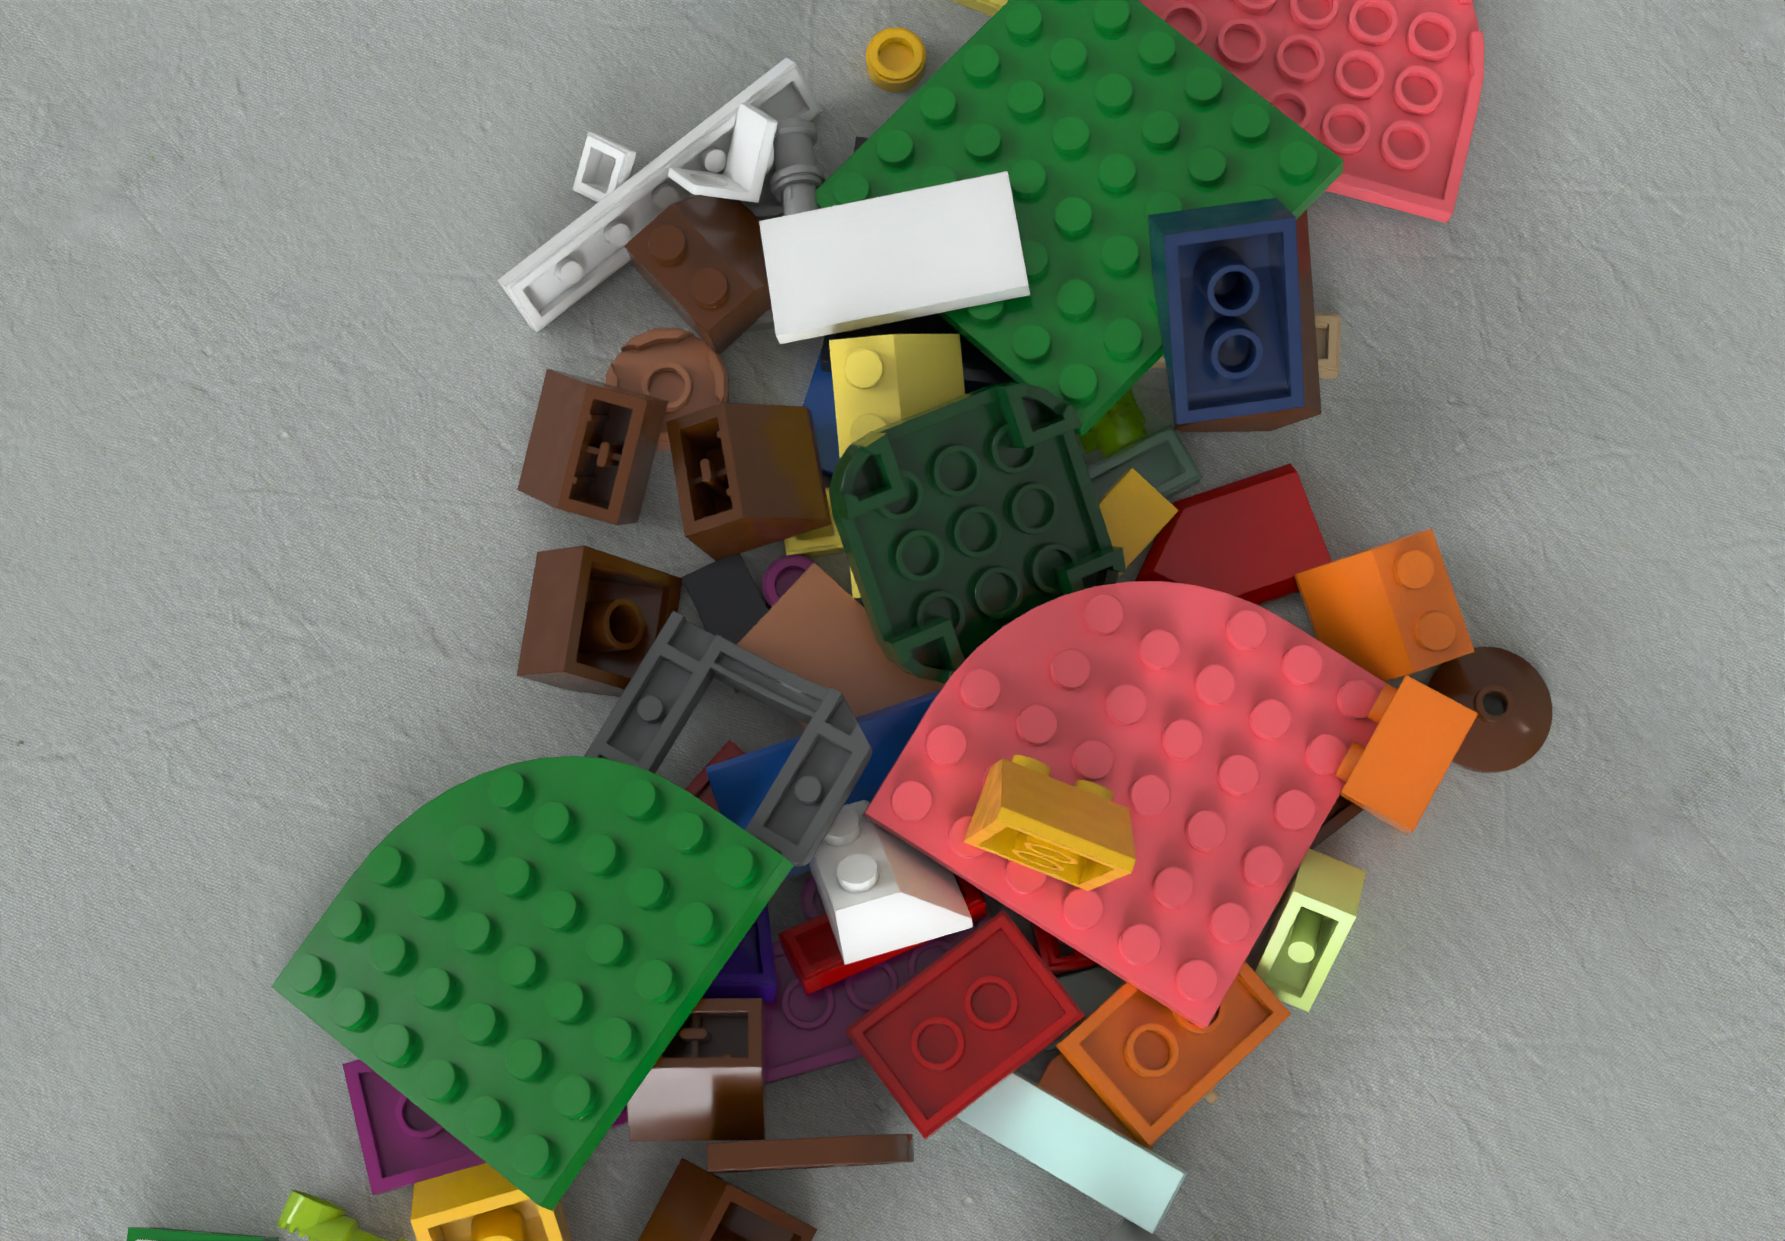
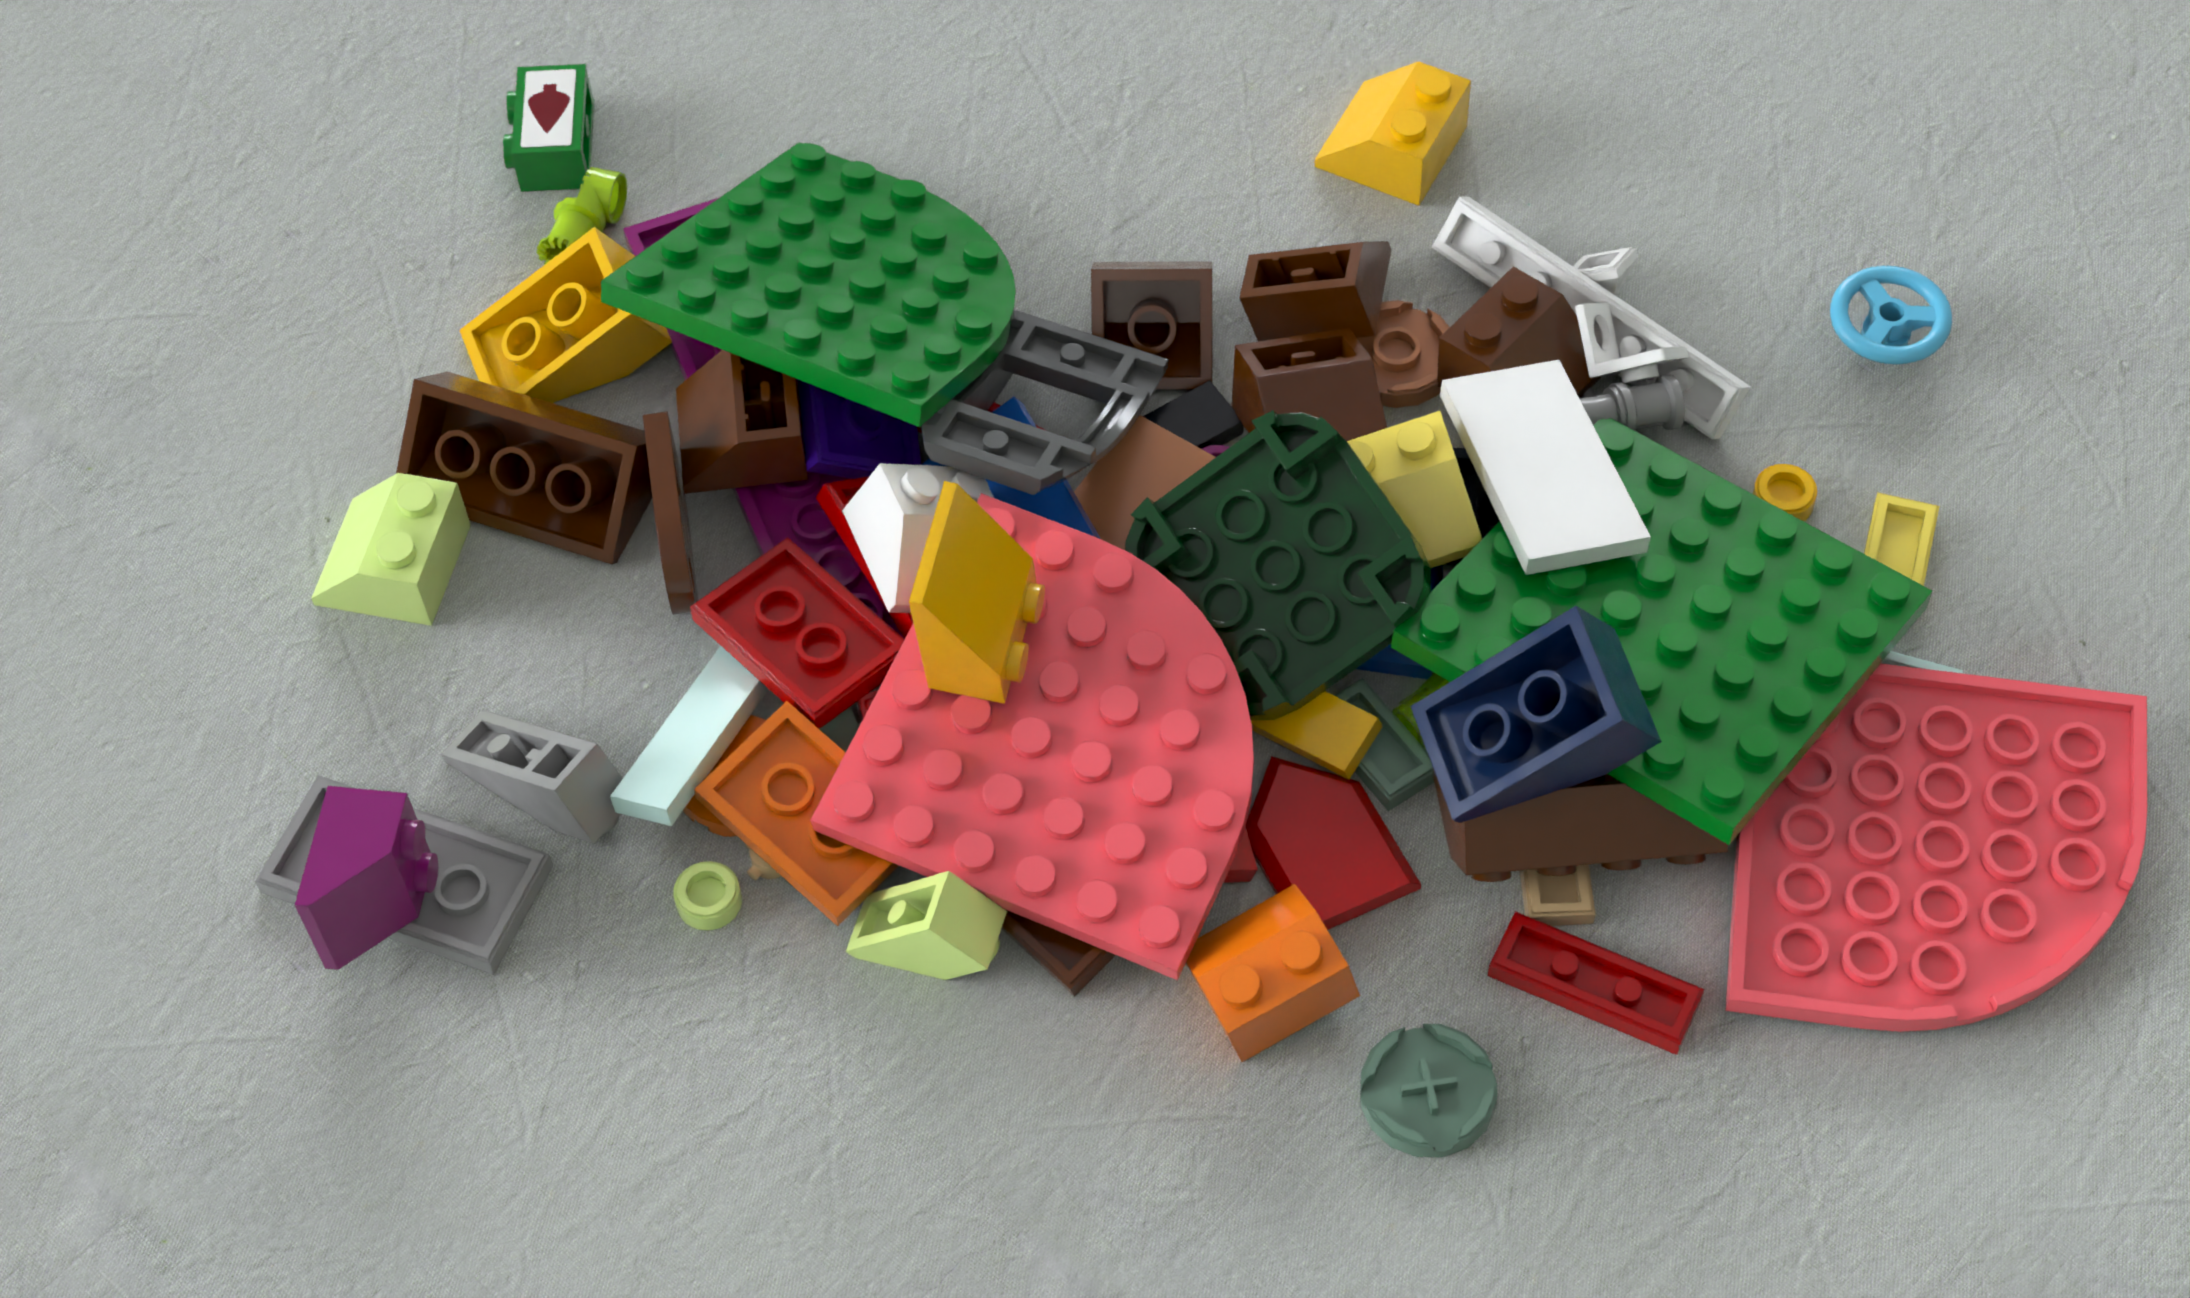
camera: 85 degrees right, 20 degrees down
(379, 341) = (1399, 131): none -> yellow slope
(1234, 1145) = (707, 895): none -> yellowish green tile
(1405, 328) = (1596, 982): none -> red tile
(1406, 754) = (1103, 977): orange slope -> none
(1501, 491) = (1428, 1090): none -> sand green tile
(1502, 740) = (1189, 1125): reddish brown dish -> none

